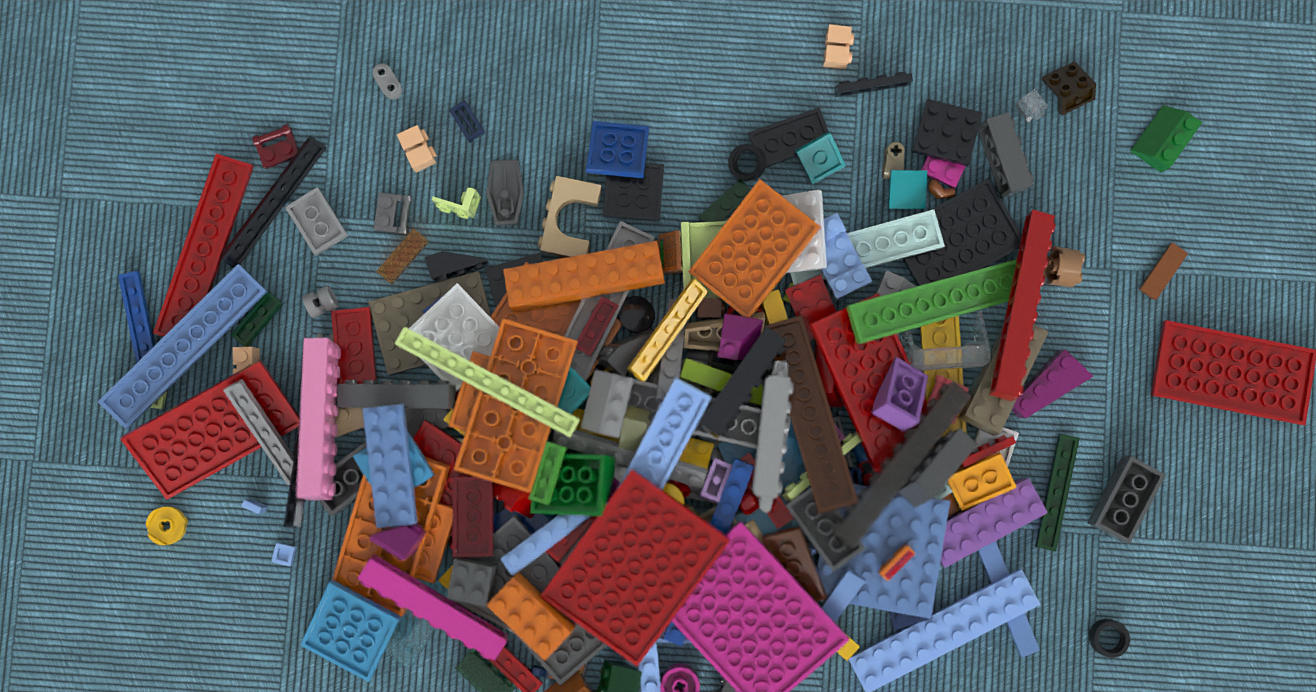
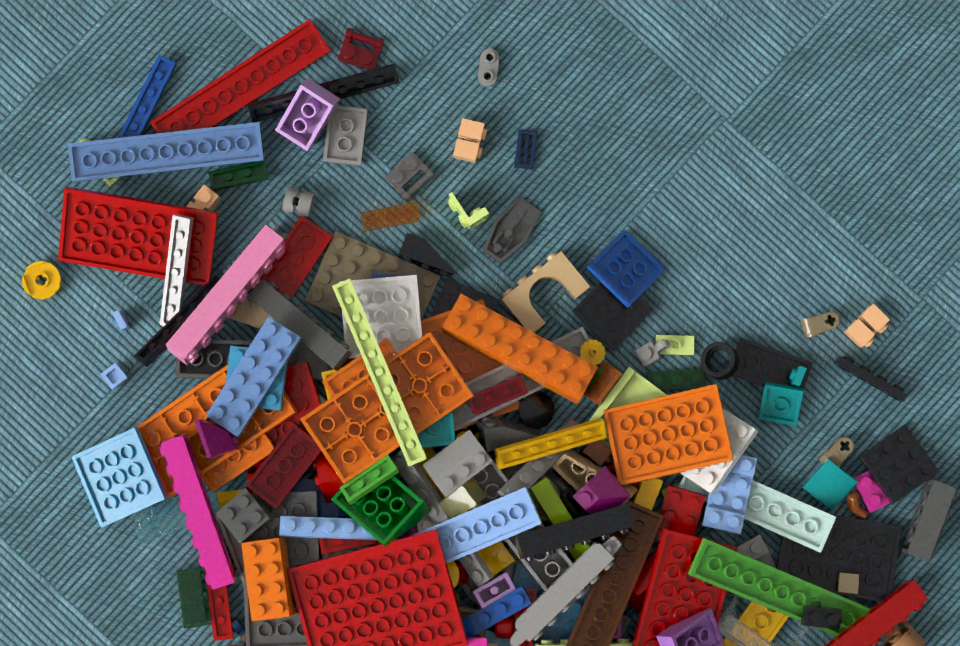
camera: 35 degrees right, 0 degrees up
(271, 227) = (307, 114): none -> lavender brick
(643, 233) = (592, 352): none -> yellow piece
(688, 198) = (650, 352): none -> light grey plate
(702, 179) = (679, 344): none -> yellowish green plate
(799, 76) = (816, 324): none -> dark tan piece
(816, 126) = (797, 375): none -> teal plate
(983, 253) = (848, 583): none -> dark tan tile
(985, 295) = (821, 617): none -> black plate

